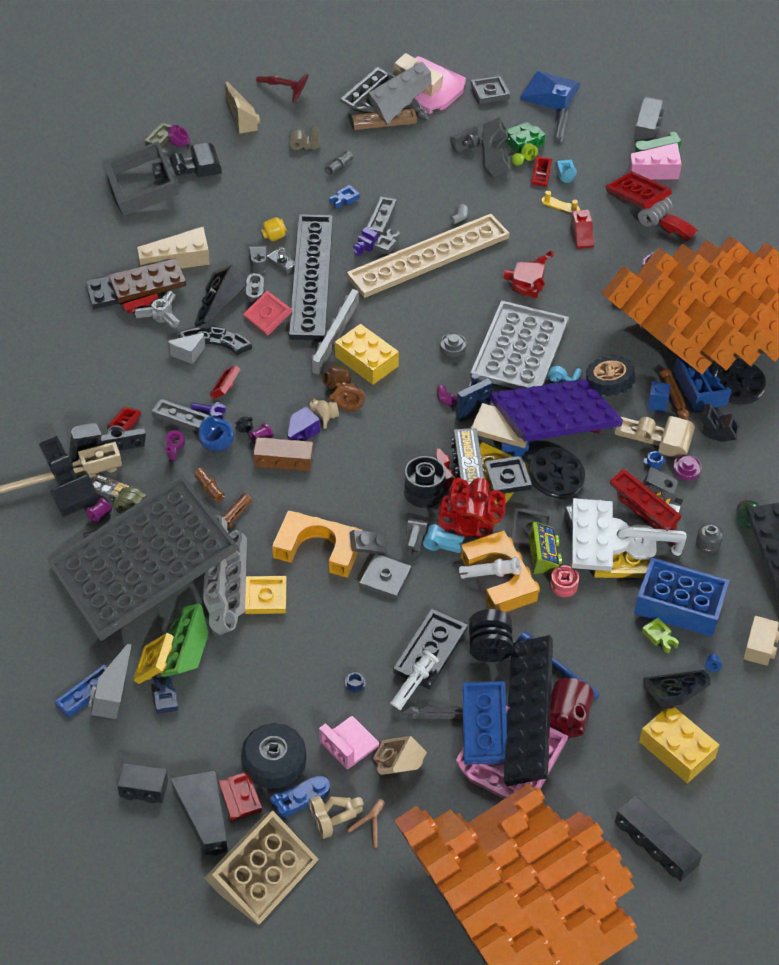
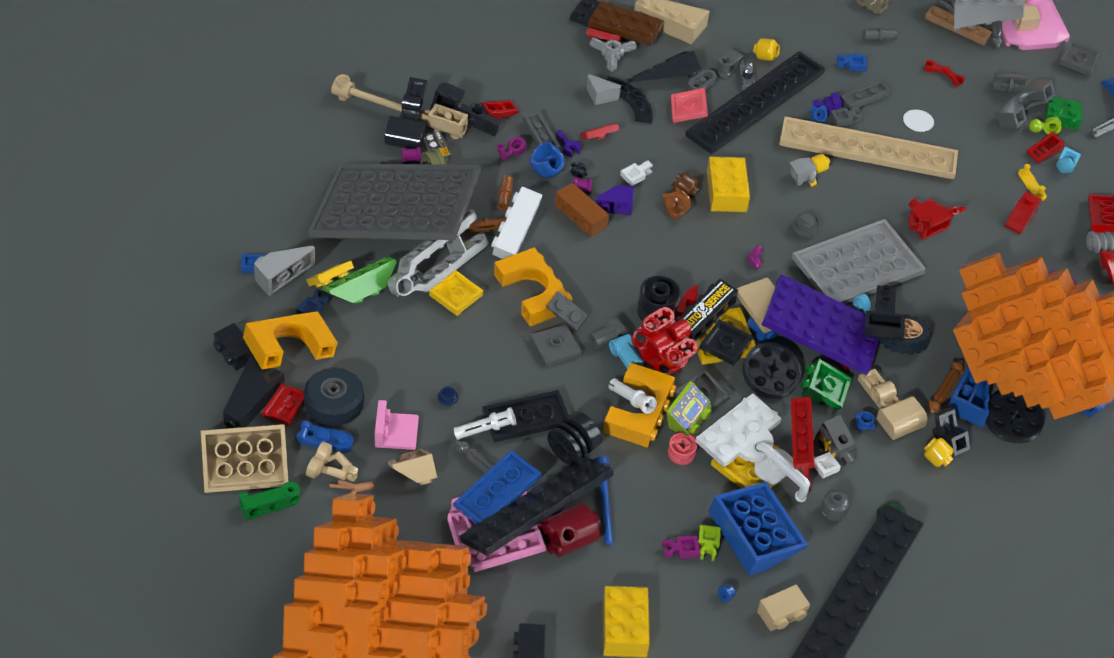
camera: 40 degrees right, 0 degrees up
(185, 717) = (307, 327): none -> light orange arch
(253, 502) = (517, 223): none -> white brick
(289, 396) = (634, 174): none -> white plate
(316, 896) = (269, 501): none -> green leg
(324, 410) = (649, 202): tan animal -> none
(333, 334) = (732, 149): light grey plate -> none
(366, 253) = (823, 114): none -> blue plate
(402, 162) = (931, 66): none -> red piece
(408, 300) = (806, 169): none -> light grey piece
(435, 210) = (918, 120): none -> white sticker
(461, 215) = (935, 136): light grey arm -> none
(471, 398) = (764, 266): dark blue plate -> none
(593, 376) = (883, 321): none -> black plate
(602, 454) = (825, 384): none -> green plate
(651, 653) = (685, 547): none -> magenta plate
(659, 396) = (927, 377): blue brick -> none
(676, 688) = (668, 581): black plate -> none
(687, 468) = (884, 445): magenta plate -> none
(725, 444) = (938, 452): none -> yellow head

